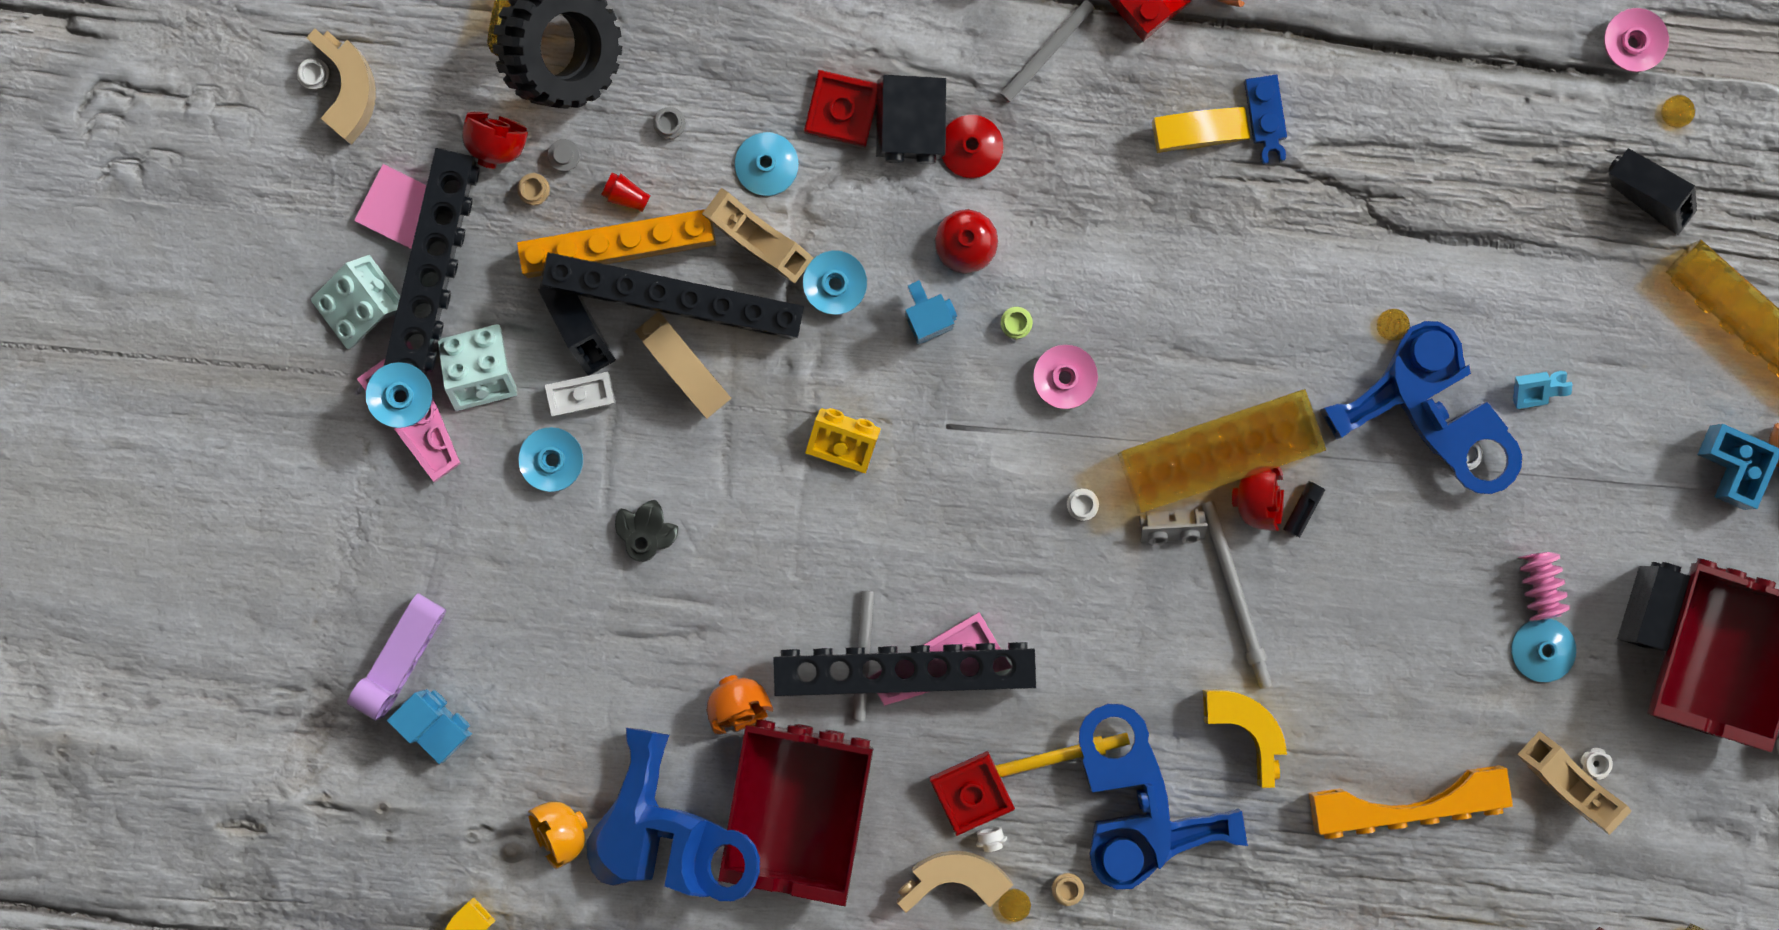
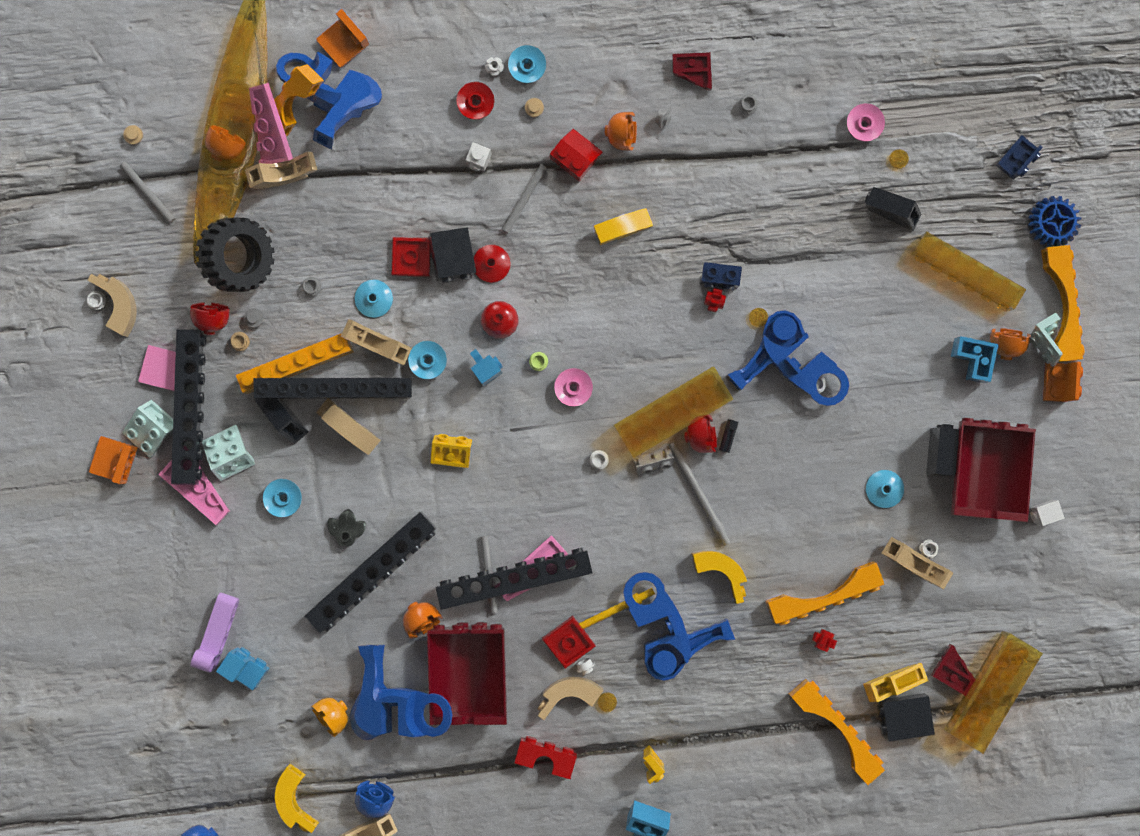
camera: 20 degrees left, 0 degrees up
(287, 340) = (113, 460): none -> orange bracket
(389, 381) = (174, 475): medium azure dish -> none
(569, 662) = (317, 615): none -> black brick
(580, 394) = (291, 456): white plate -> none
(624, 192) = (293, 332): red cone -> none
(1067, 889) = (636, 686): tan plate -> none
(1266, 115) = (659, 210): blue plate -> none
(1327, 281) = (714, 300): none -> red gear
(1345, 243) = (721, 275): none -> dark blue bracket
(1394, 878) = (824, 640): none -> red gear
(1537, 388) = (849, 338): medium azure plate -> none
(1544, 585) = (877, 451): bright pink piece -> none

